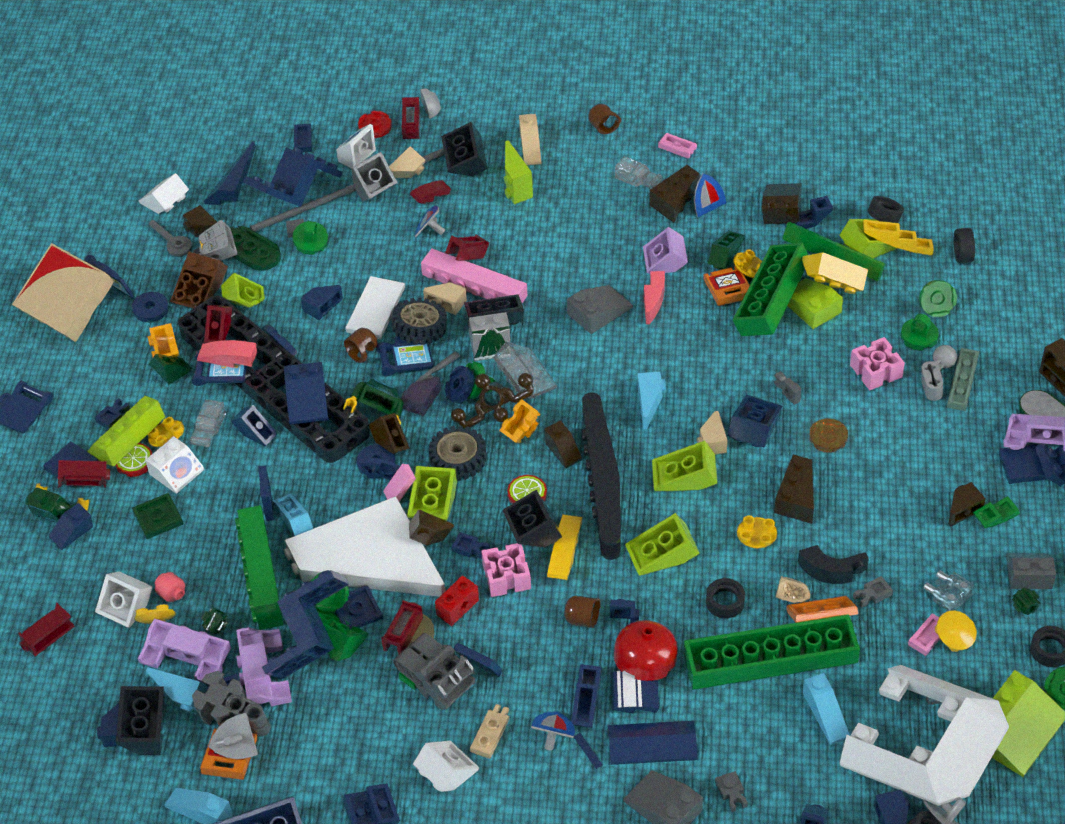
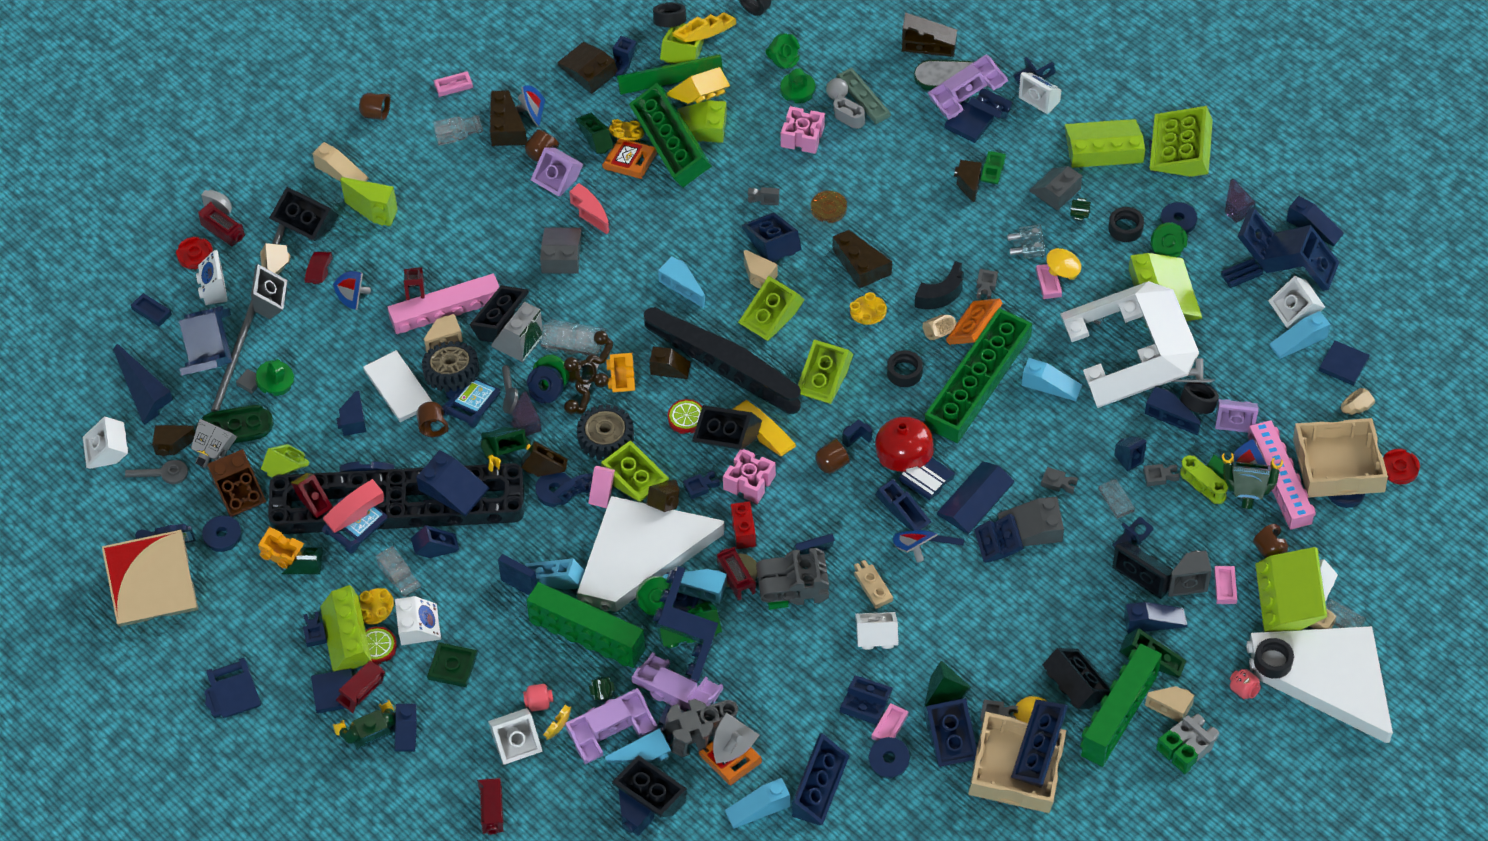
camera: 50 degrees left, 5 degrees up
(370, 611) = (703, 584): none -> medium azure slope
(624, 788) = (998, 538): none -> dark blue slope
(676, 223) = (537, 143): none -> reddish brown helmet

